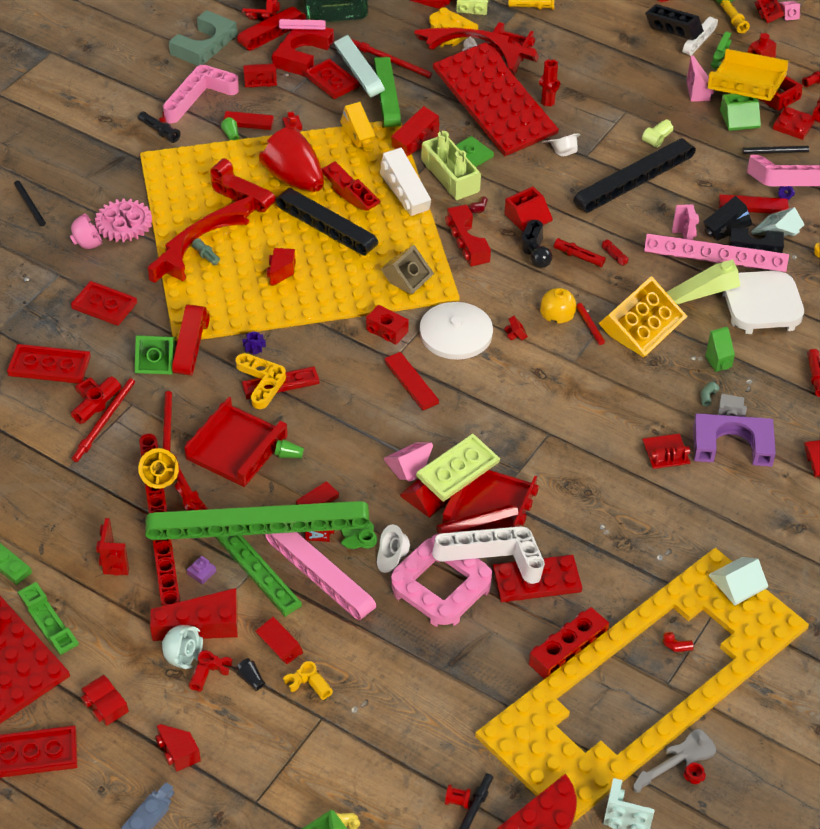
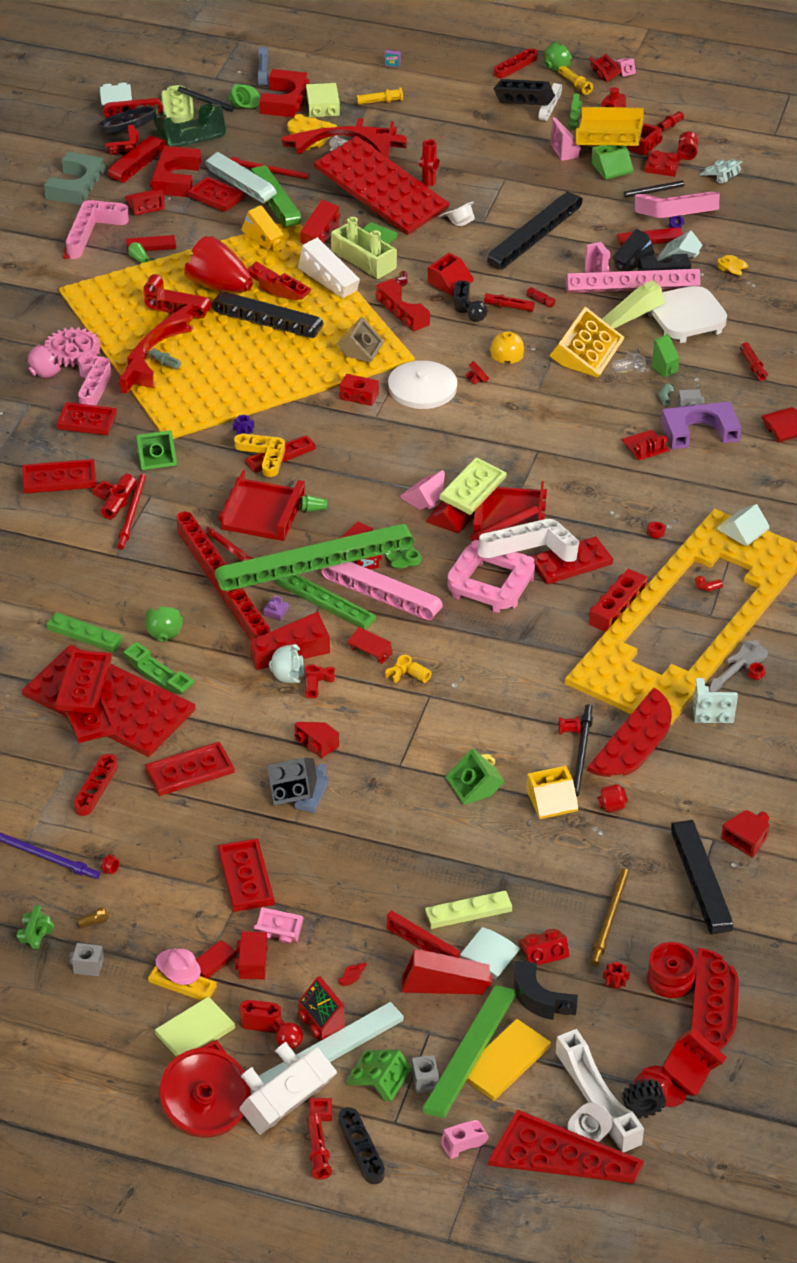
camera: 15 degrees left, 5 degrees down
(74, 565) = (163, 623): none -> bright green cylinder
(104, 700) = (237, 717): red brick -> none
(112, 555) = (195, 607): red bracket -> none
(126, 800) = (292, 780): none -> black slope
(135, 256) = (97, 375): none -> bright pink beam
(158, 468) = (211, 531): yellow cylinder -> none
(163, 129) = (73, 263): black pin -> none
(167, 420) = (205, 525): red bar -> none
(193, 322) = (185, 431): red beam -> none
(250, 674) = (354, 674): black cone -> none
(282, 265) = (241, 357): red slope -> none
(292, 121) = (193, 237): red tile -> none
(302, 24) = (170, 149): bright pink axle -> none
(392, 548) = (438, 559): white piece -> none
(411, 381) = (399, 431): red tile -> none
(594, 330) = (541, 358): red bar -> none
(643, 559) = (656, 529): none -> red tile
(656, 135) = (542, 192): yellowish green piece -> none
(689, 349) = (633, 362): none -> clear bar

